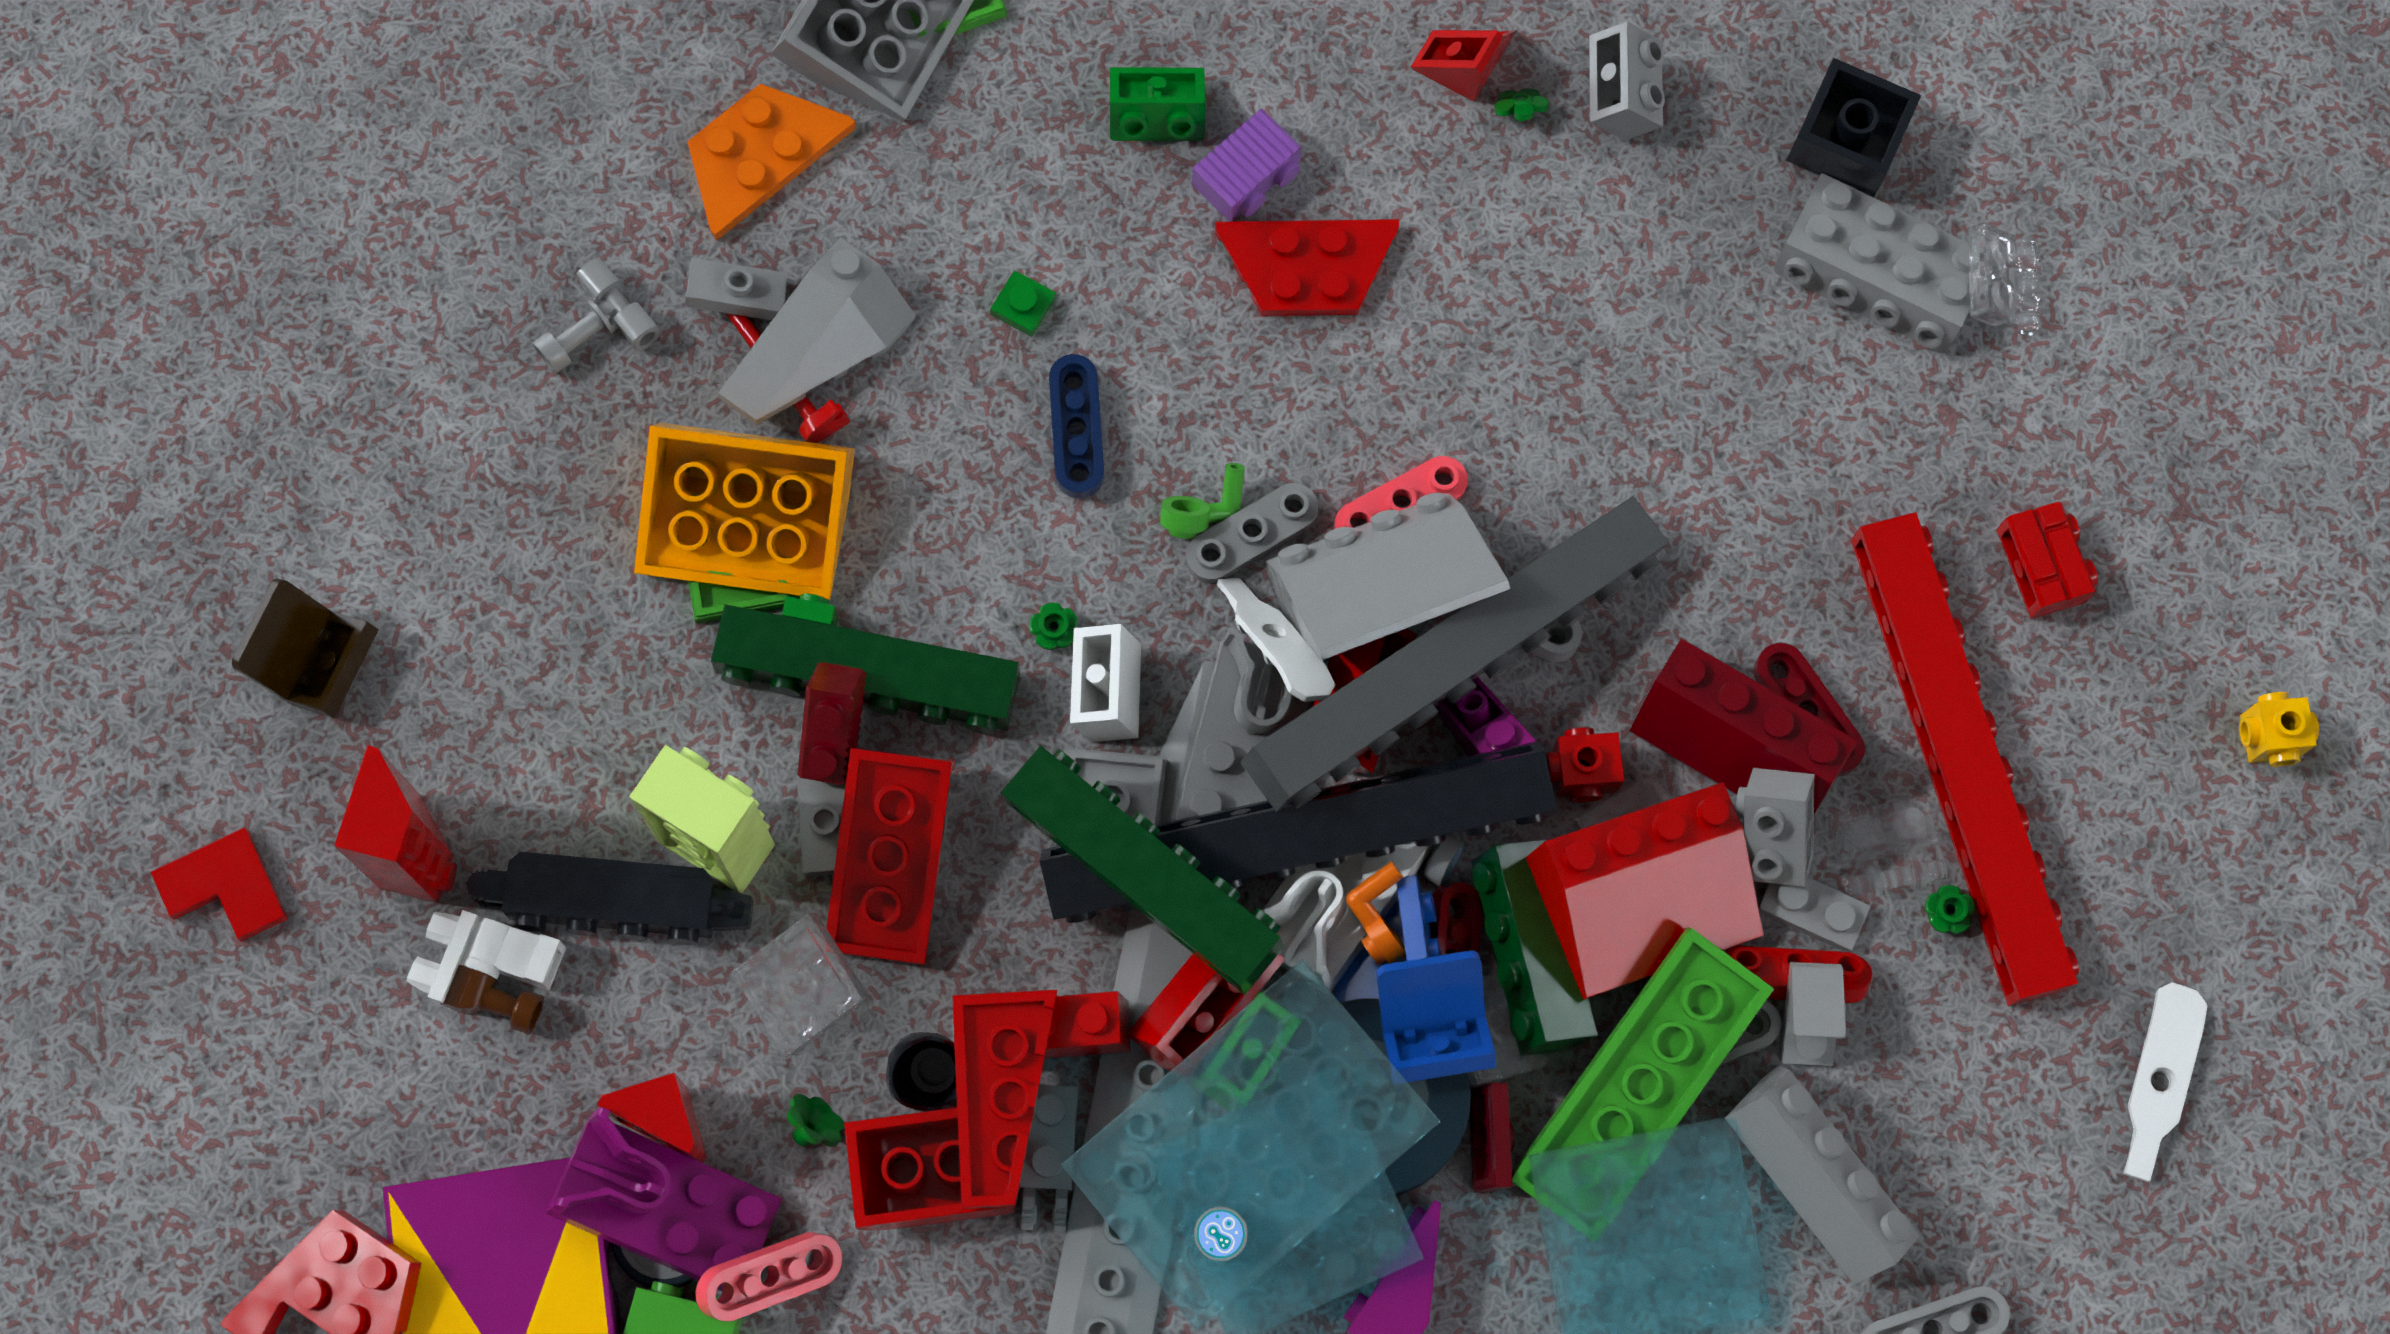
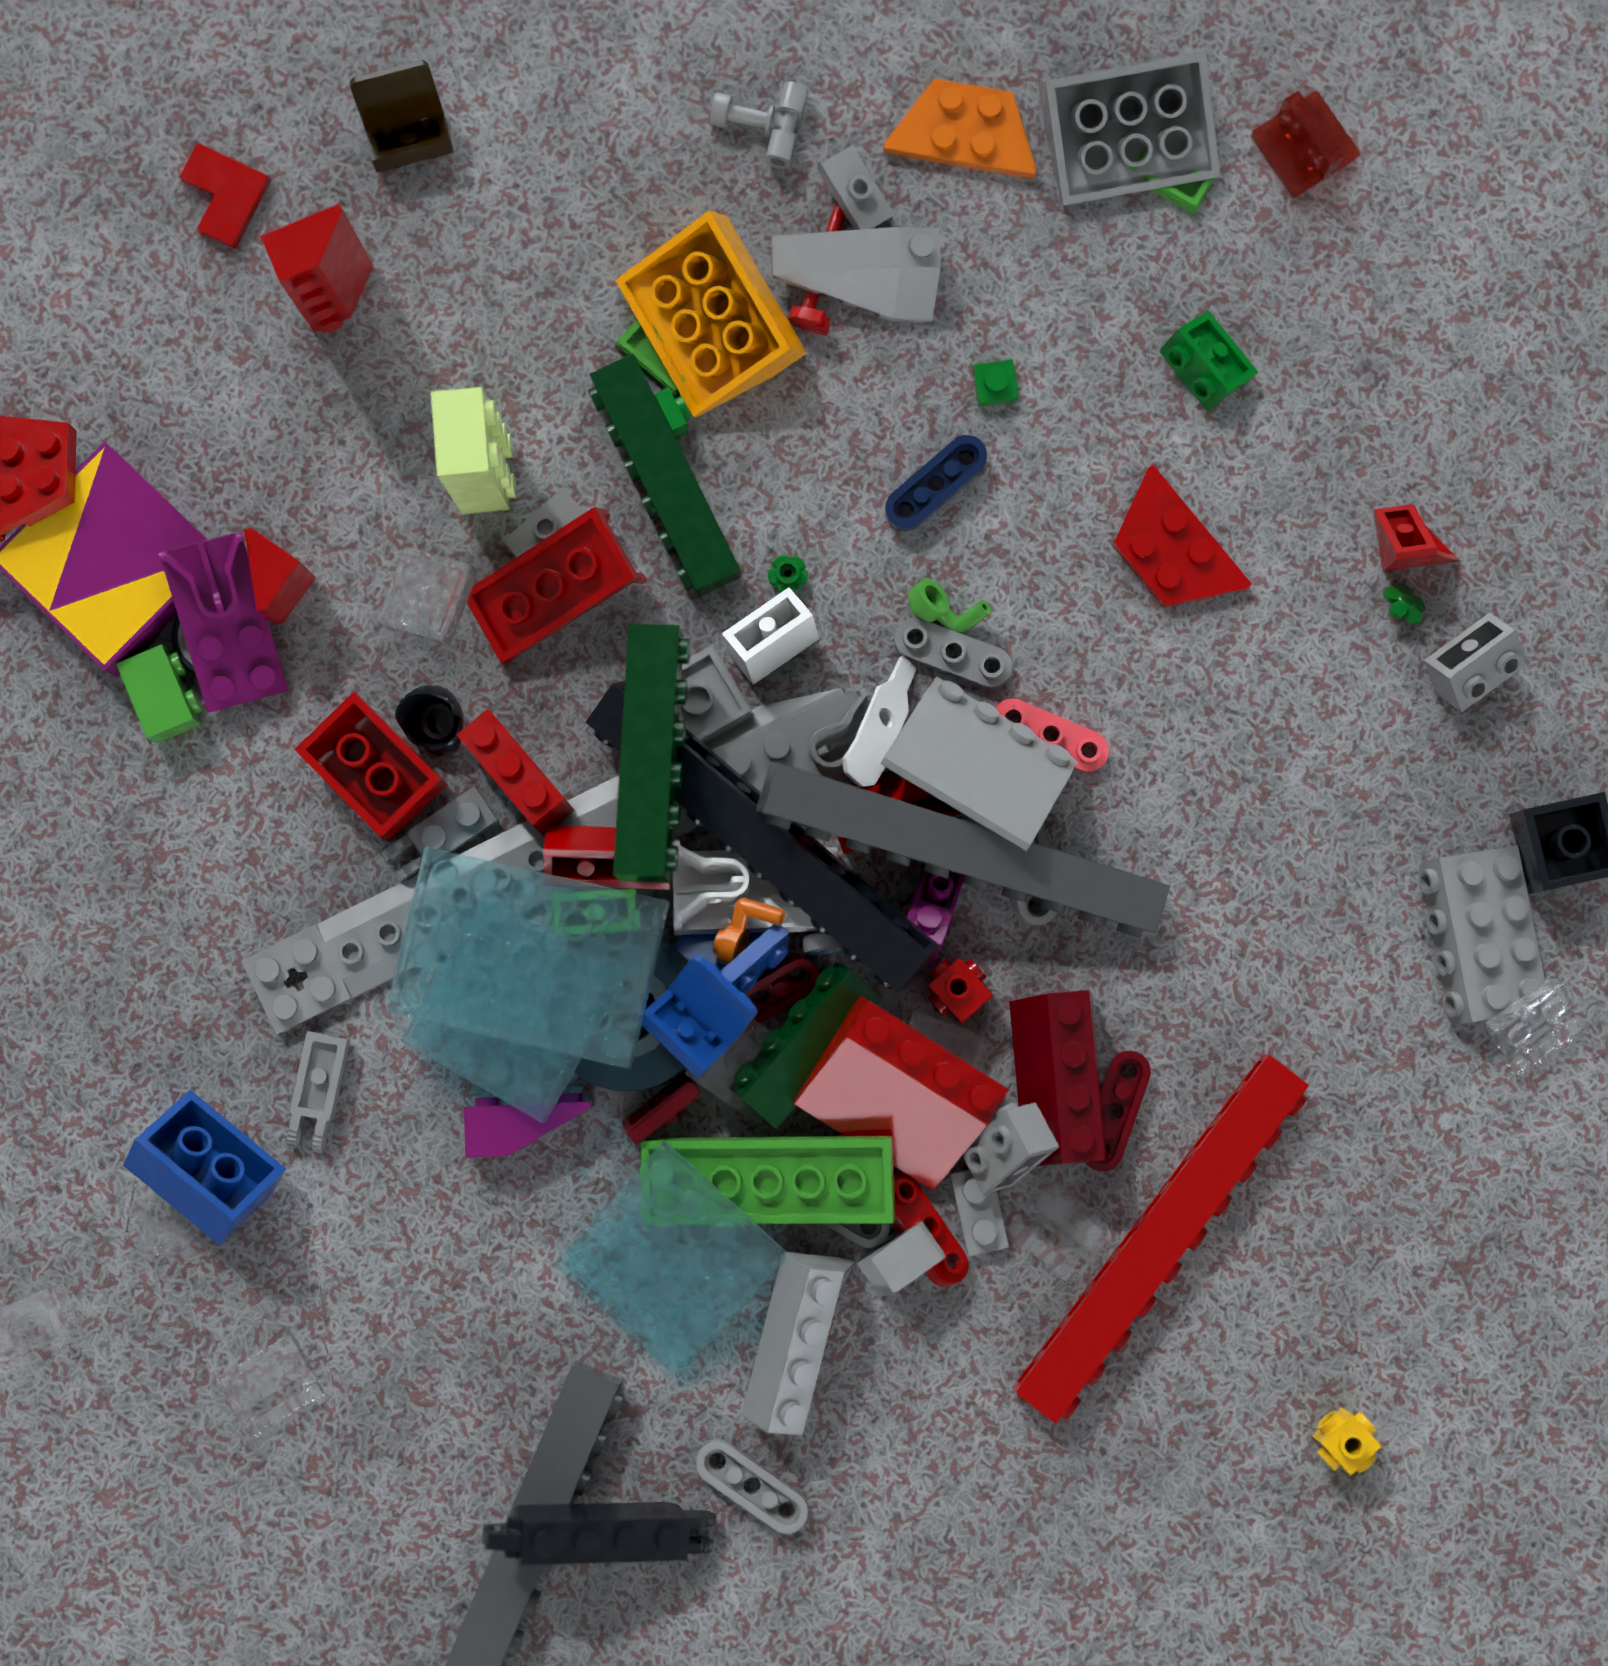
camera: 60 degrees right, 10 degrees up
(472, 963) = (292, 383): white hips -> none
(611, 895) = (394, 432): black hinge -> none
(786, 1277) = (241, 732): coral plate -> none
(814, 1122) = (350, 672): green plant -> none
(830, 722) = (607, 480): dark red brick -> none
(998, 1077) = (447, 766): red wing -> none
(1221, 1233) = (453, 981): tile -> none
(1247, 166) = (1209, 455): medium lavender brick -> none
(1941, 920) = (1036, 1299): green plate -> none
(2047, 559) = (1349, 1199): red brick -> none
(2168, 1049) = (1064, 1518): white piece -> none

